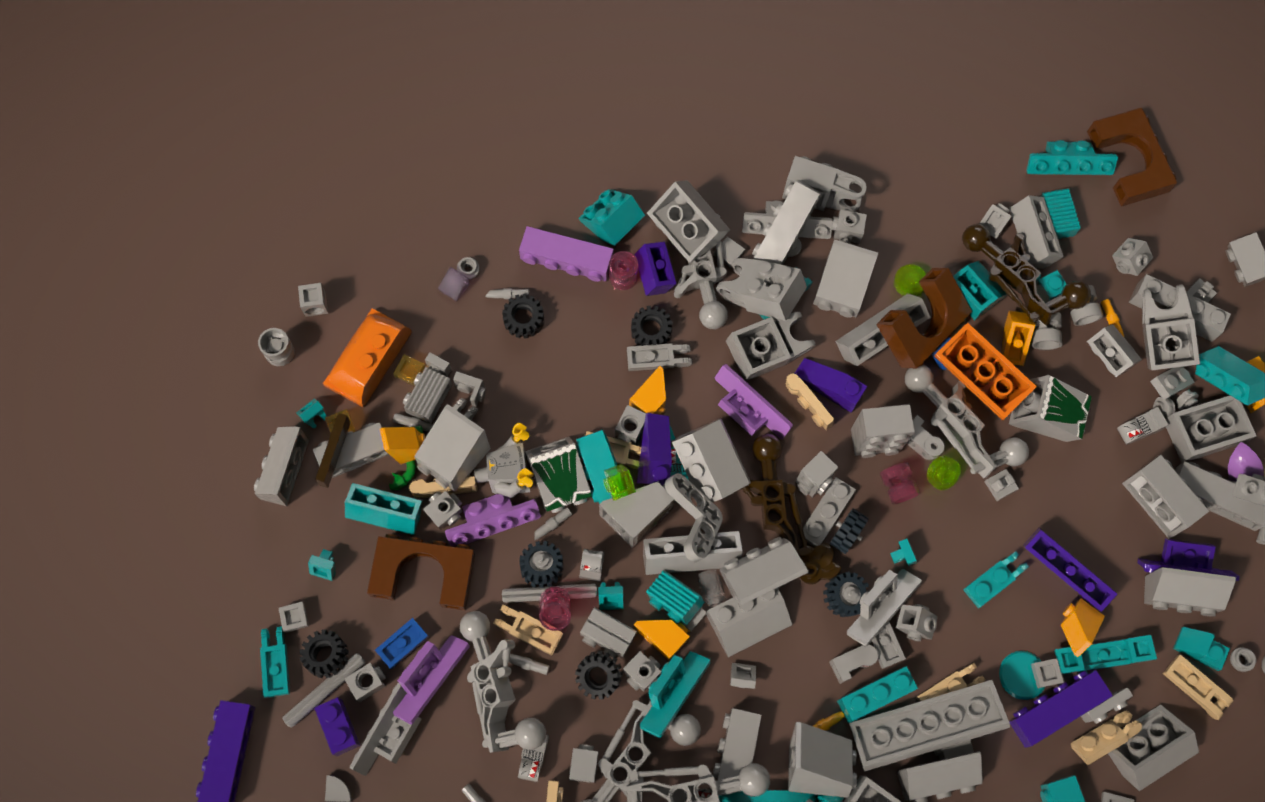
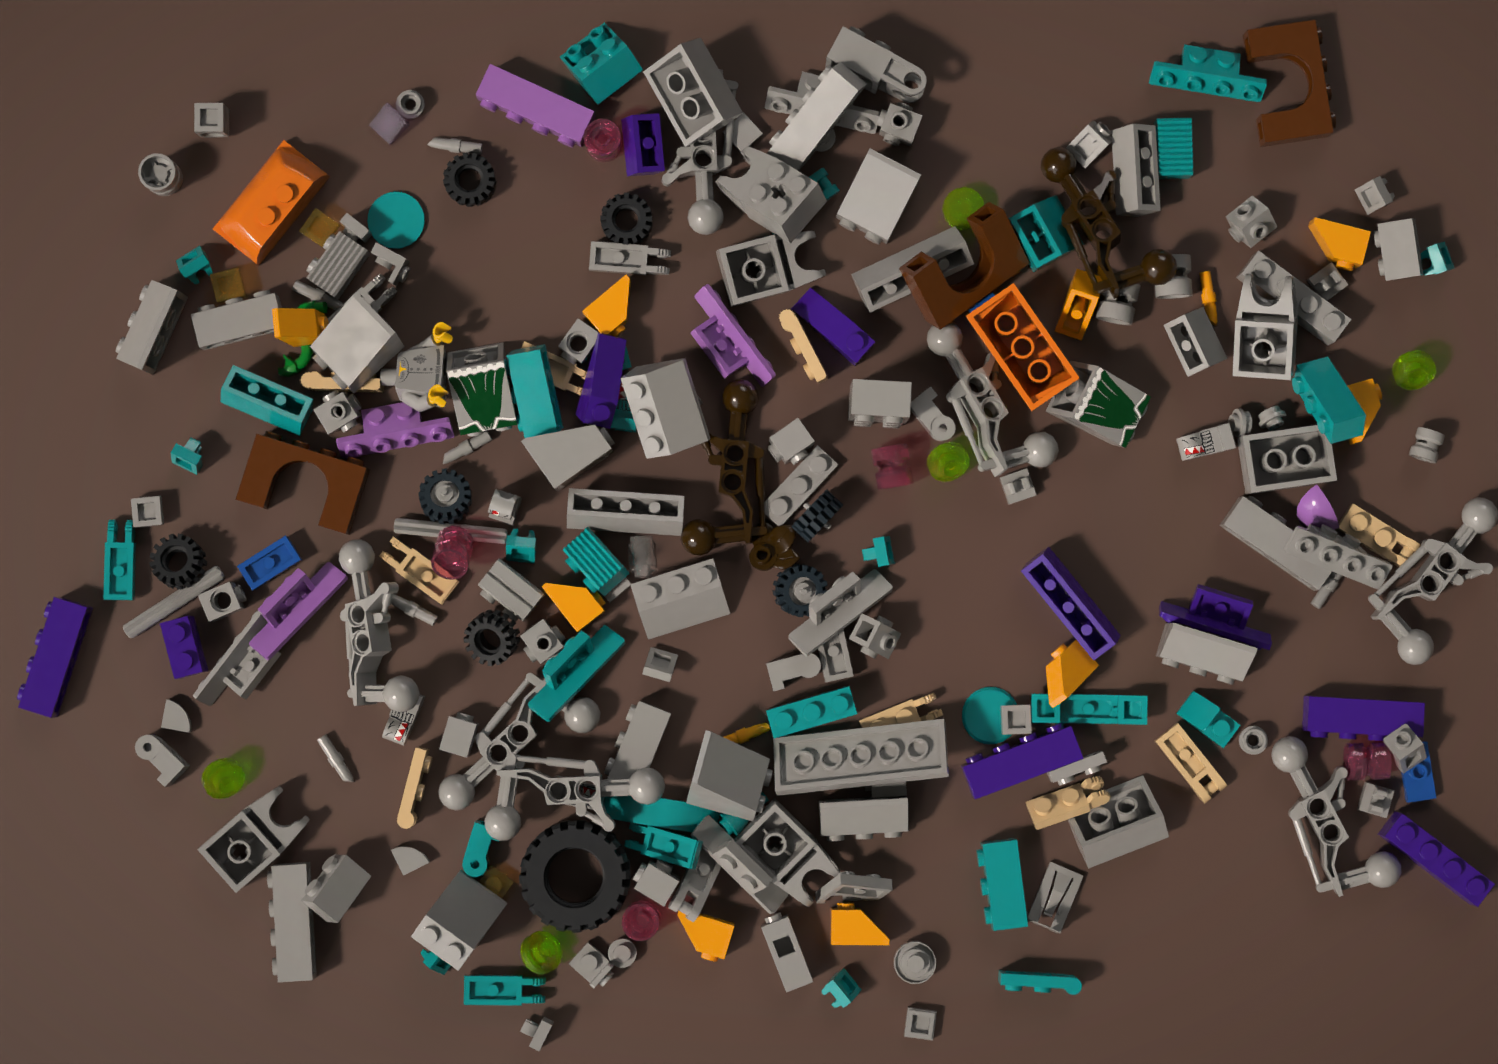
camera: 10 degrees right, 15 degrees up
(333, 450) = (214, 322): dark brown tile -> none
(469, 355) = (396, 220): none -> teal piece
(618, 482) = (547, 418): clear neon green brick -> none
(706, 515) = (642, 476): light grey beam -> none
(762, 570) = (700, 550): light grey slope -> none
(993, 581) = (980, 600): teal hinge -> none
(1050, 286) = (1135, 247): teal brick -> none
(1165, 497) = (1208, 535): light grey slope -> none
(1172, 382) = (1257, 394): light grey plate -> none
(1202, 262) = (1340, 242): none -> light orange slope
(1217, 225) = (1374, 195): none -> light grey tile

